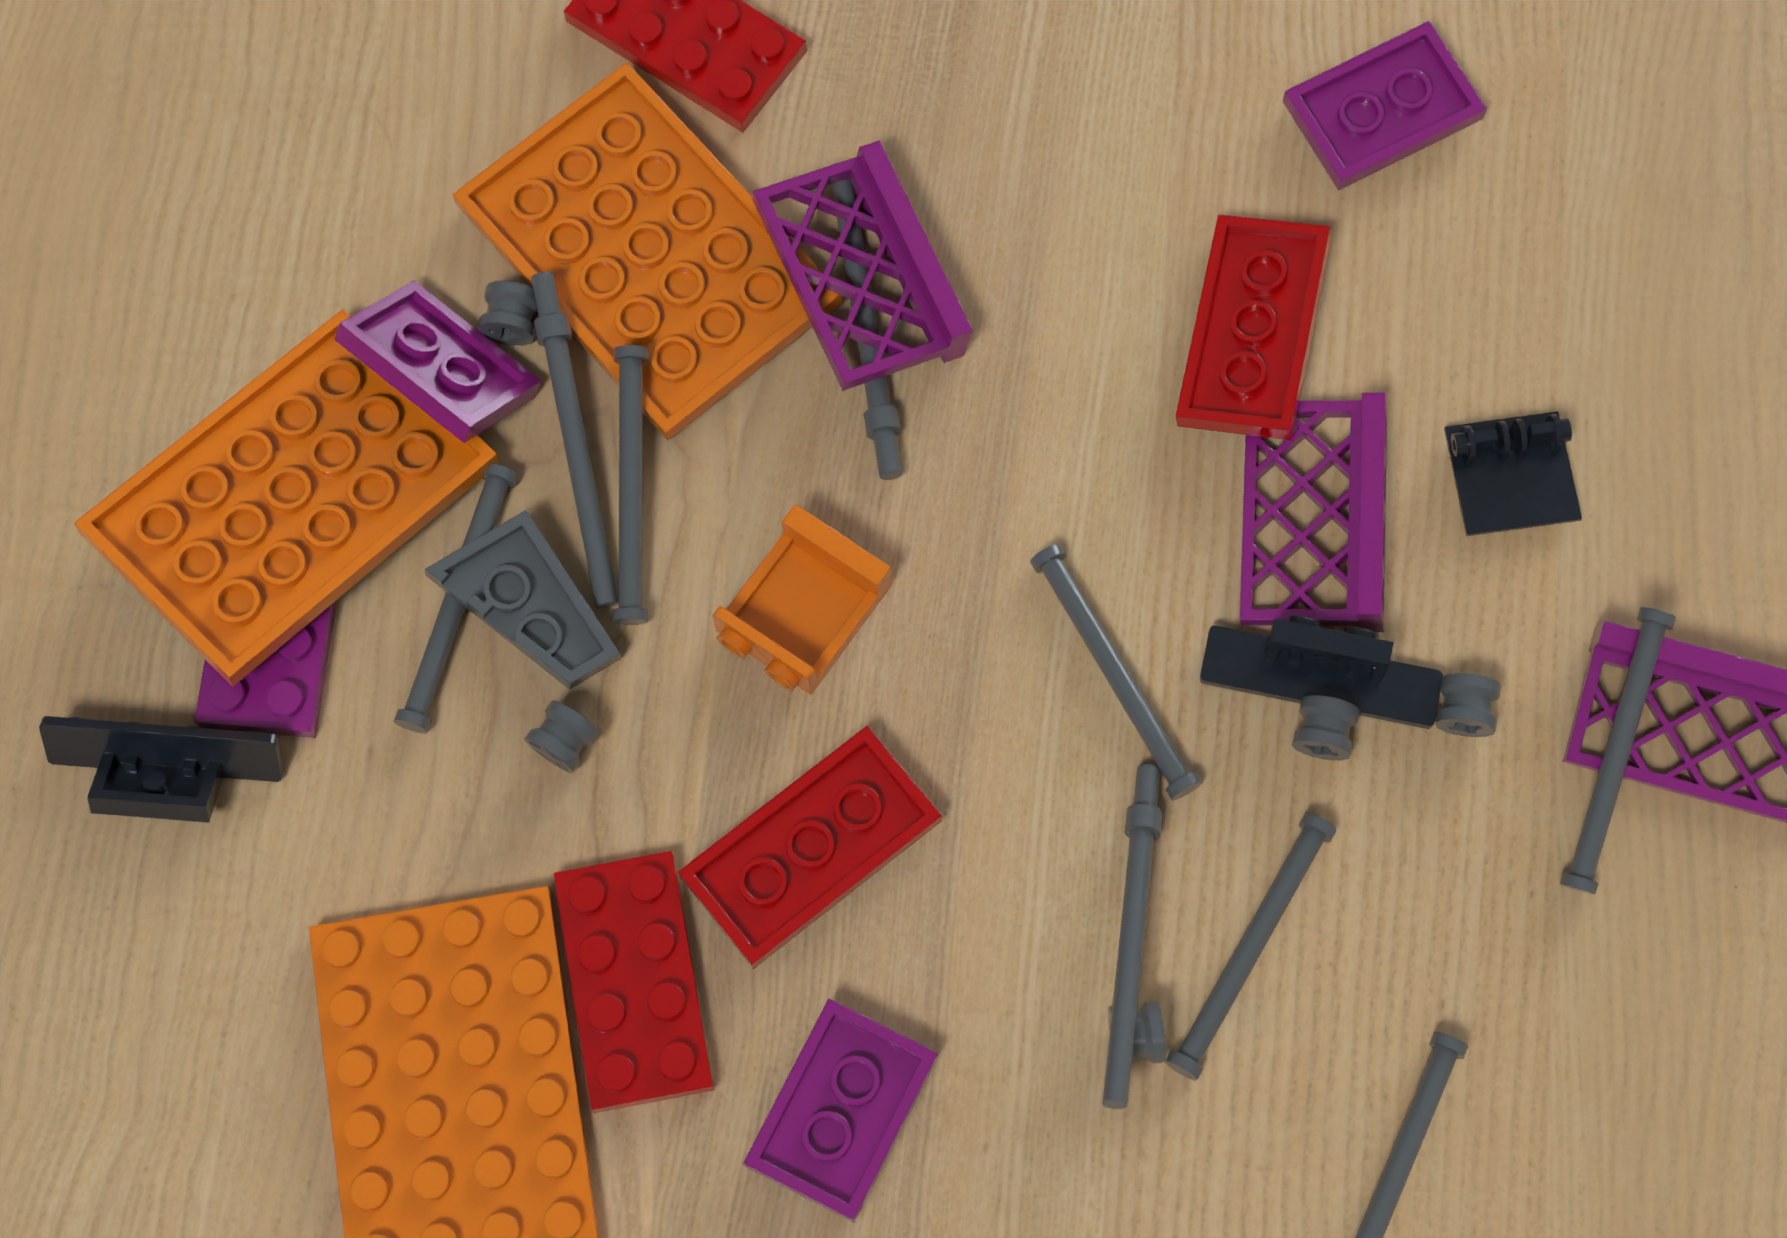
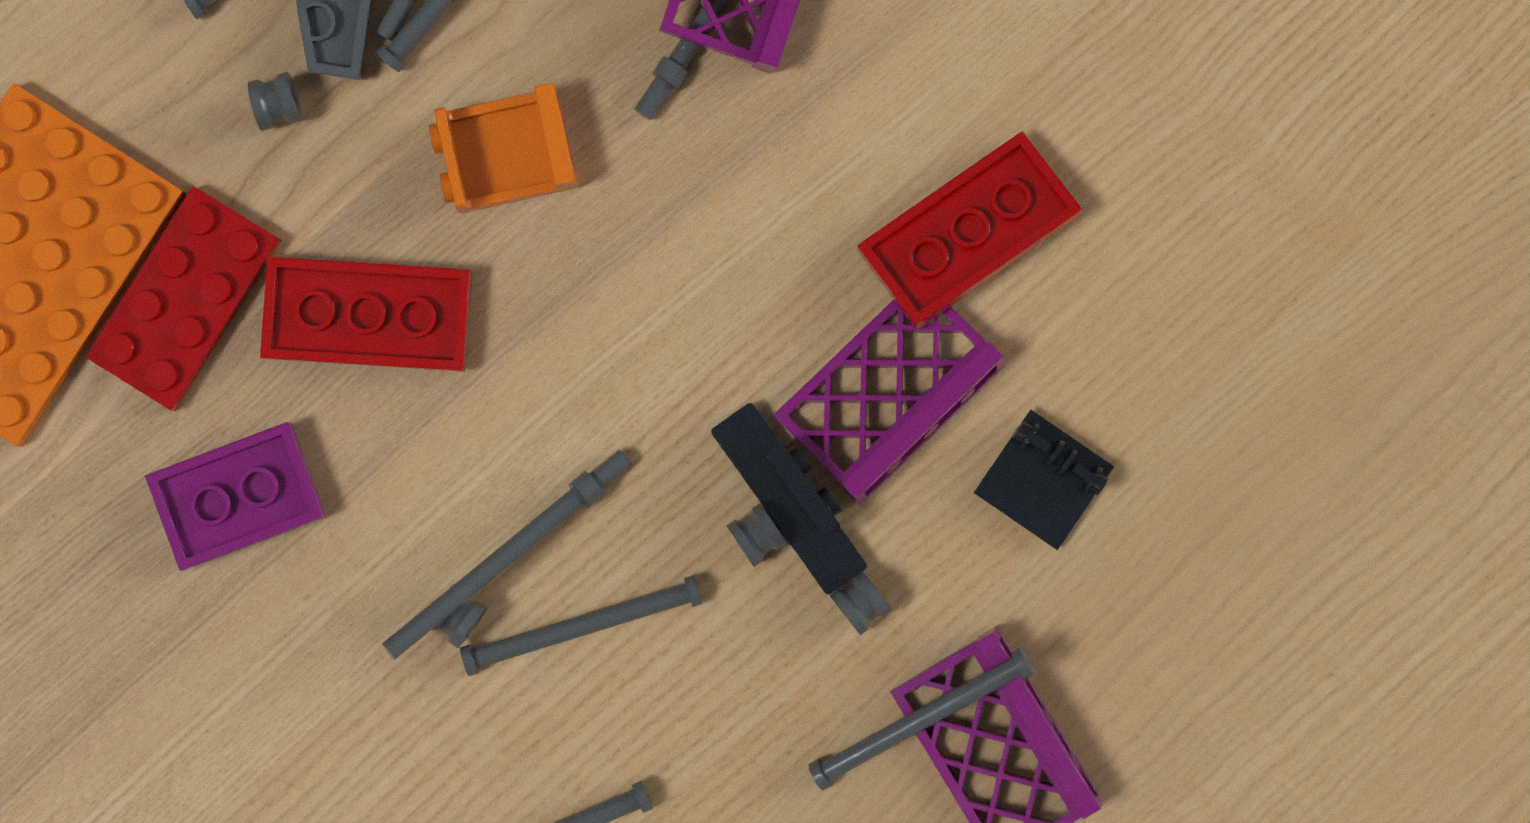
camera: 40 degrees right, 15 degrees up
(1115, 671) = (663, 374): dark grey bar -> none
(1384, 105) = (1210, 153): magenta plate -> none

